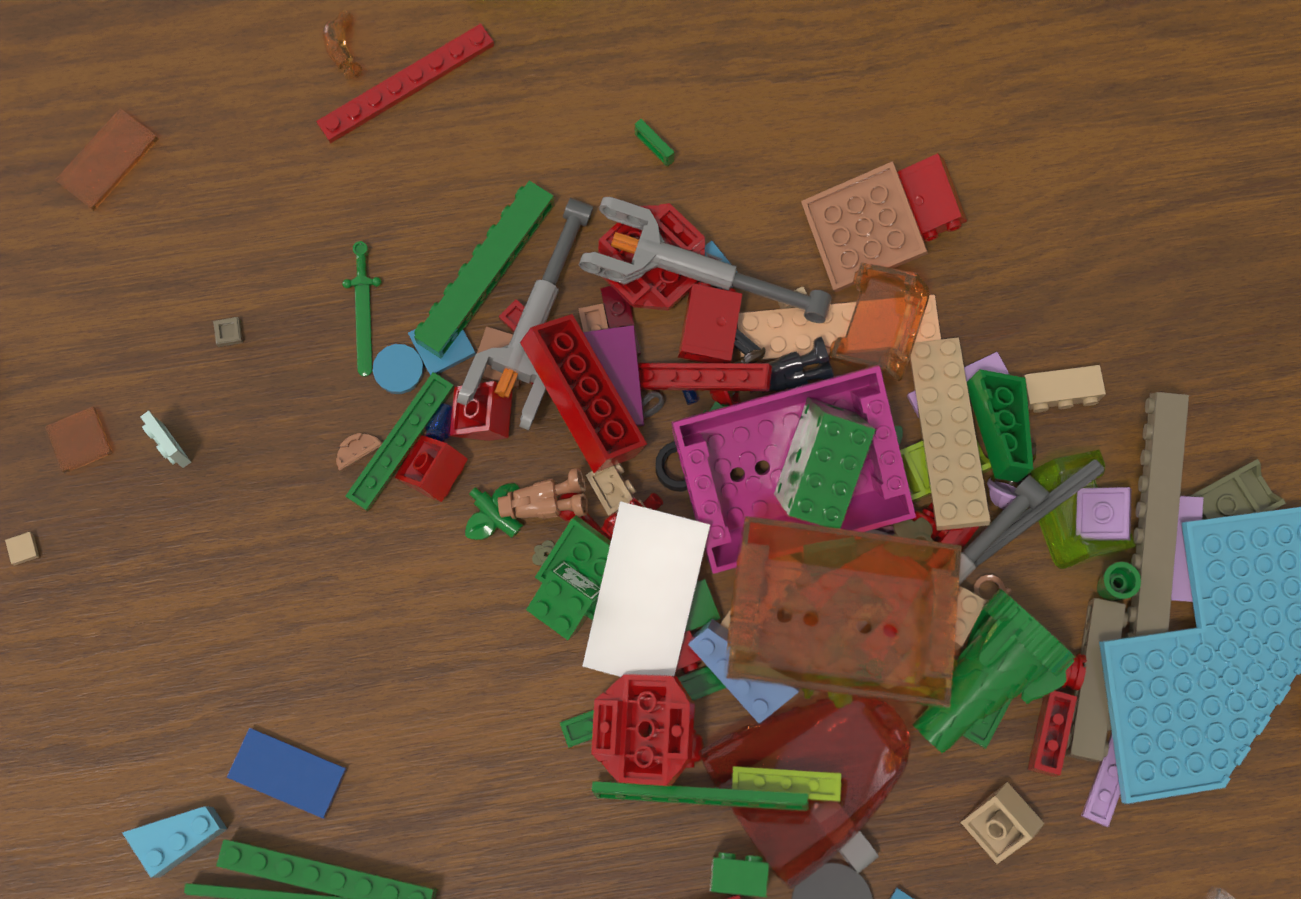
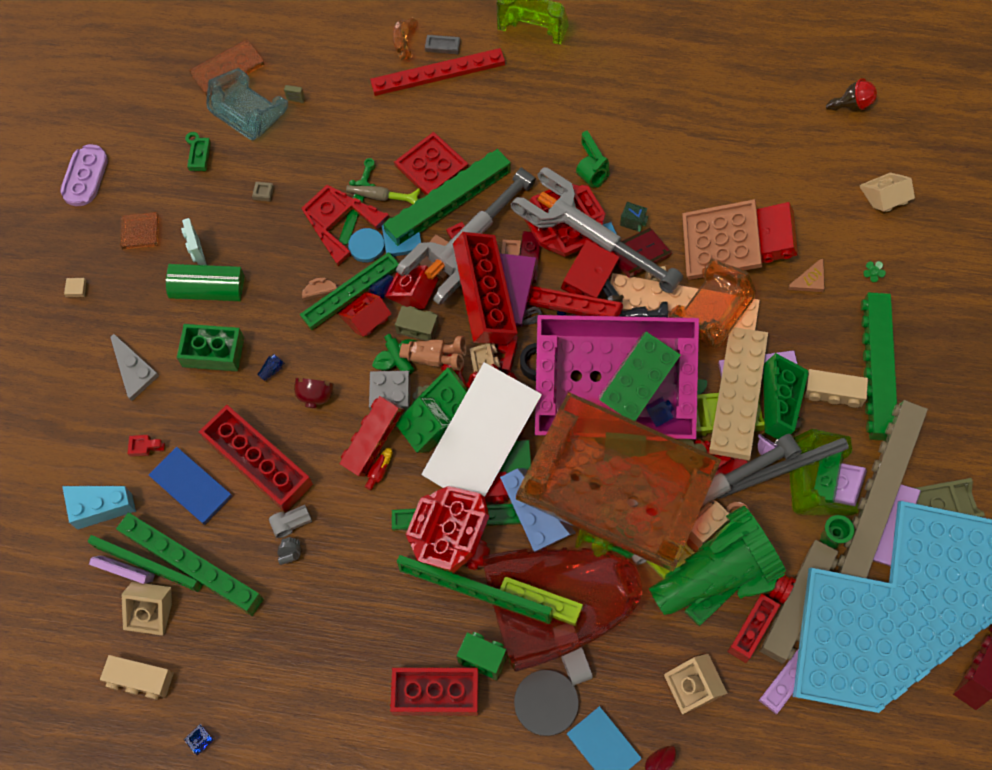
camera: 20 degrees right, 10 degrees down
(117, 301) = (198, 152): none -> green hinge
(152, 642) = (134, 371): none -> light grey wing
(153, 214) = (242, 107): none -> clear light blue windscreen
(199, 489) = (204, 282): none -> green brick
(203, 740) = (142, 444): none -> red plate
(219, 174) = (294, 93): none -> olive tile
(244, 580) = (210, 347): none -> green brick
(328, 333) = (329, 208): none -> red wing
(333, 580) = (271, 366): none -> clear blue cone
(361, 712) = (256, 458): none -> red brick
(395, 288) = (382, 193): none -> dark tan piece
(397, 39) = (442, 44): none -> flat silver tile
(402, 599) = (312, 392): none -> dark red cylinder
(429, 784) = (284, 523): none -> light grey piece
(445, 226) = (430, 163): none -> red plate
(448, 819) = (288, 550): none -> dark grey piece
(502, 638) = (371, 436): none -> red brick
(503, 569) = (391, 385): none -> light grey brick
(505, 461) = (416, 323): none -> olive brick
(524, 675) = (378, 469): none -> red piece
(640, 480) = (509, 350): none -> red hinge
(666, 175) = (593, 171): none -> green piece
(740, 225) = (634, 217): none -> clear green brick
(769, 263) = (646, 244): none -> dark red tile
(864, 494) = (660, 411): none -> clear blue brick
(991, 246) = (811, 279): none -> nougat tile
(1054, 92) = (888, 191): none -> tan slope
(1066, 210) = (874, 271): none -> green plant
(1087, 512) = (828, 476): none -> green plate
(1107, 338) = (879, 363): none -> green brick

